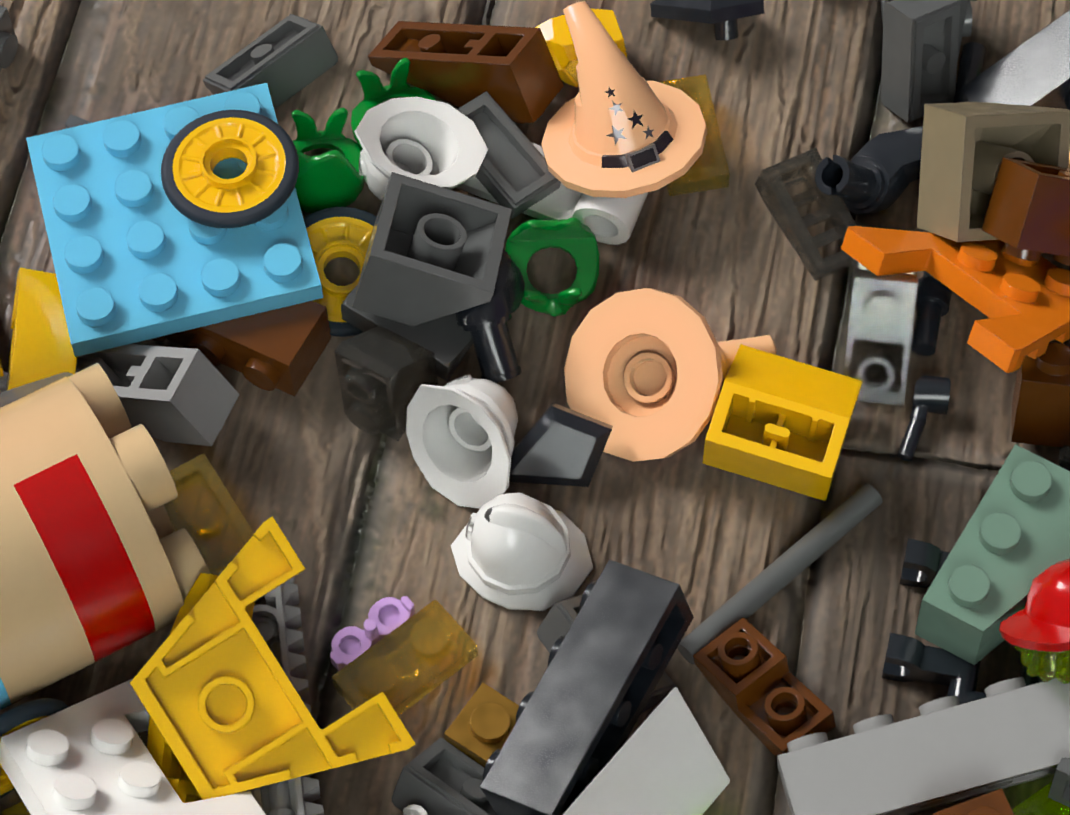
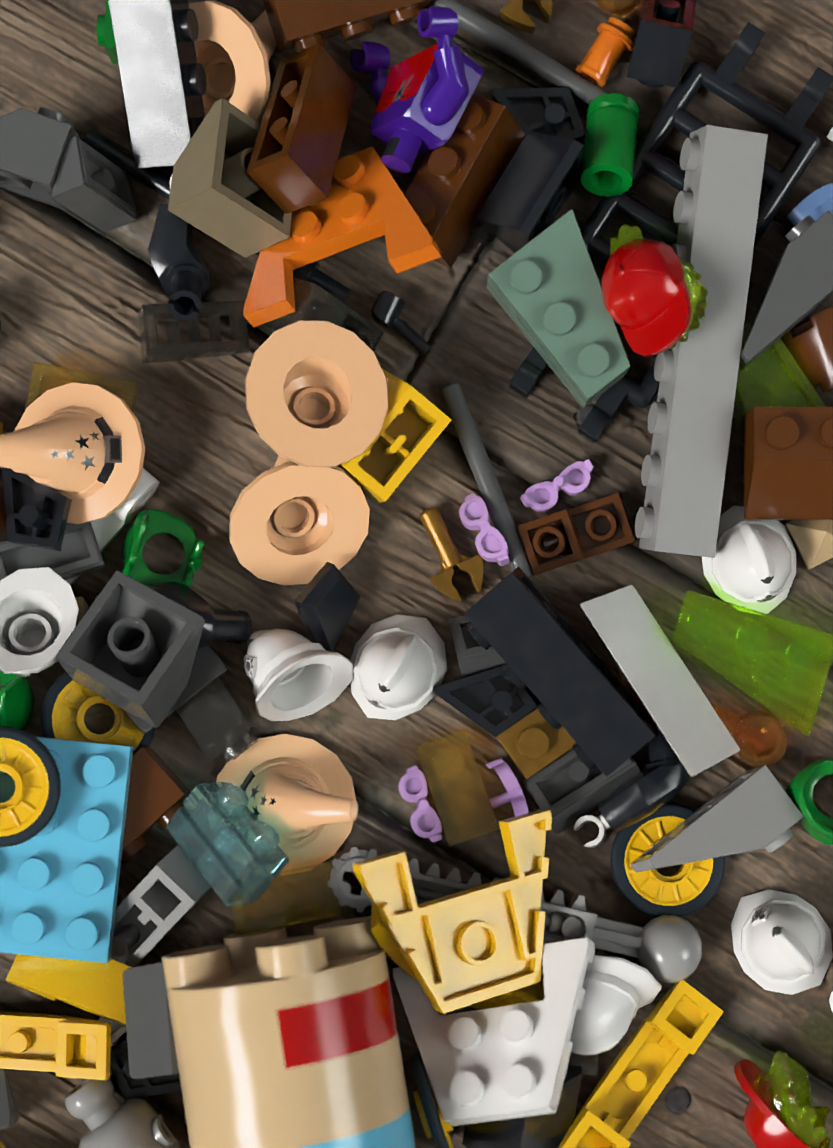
camera: 70 degrees left, 25 degrees up
(248, 426) = (228, 842): none -> clear light blue brick
(324, 486) = (299, 793): none -> light nougat piece
(431, 724) = (514, 792): none -> lavender piece
(518, 652) = (488, 699): none -> black piece
(541, 115) = (34, 512): none -> black piece
(683, 554) = (449, 556): none -> pearl gold bar
(710, 587) = (489, 541): none -> lavender piece
(793, 318) = (316, 394): none -> light nougat piece
(826, 665) = (571, 481): none -> lavender piece

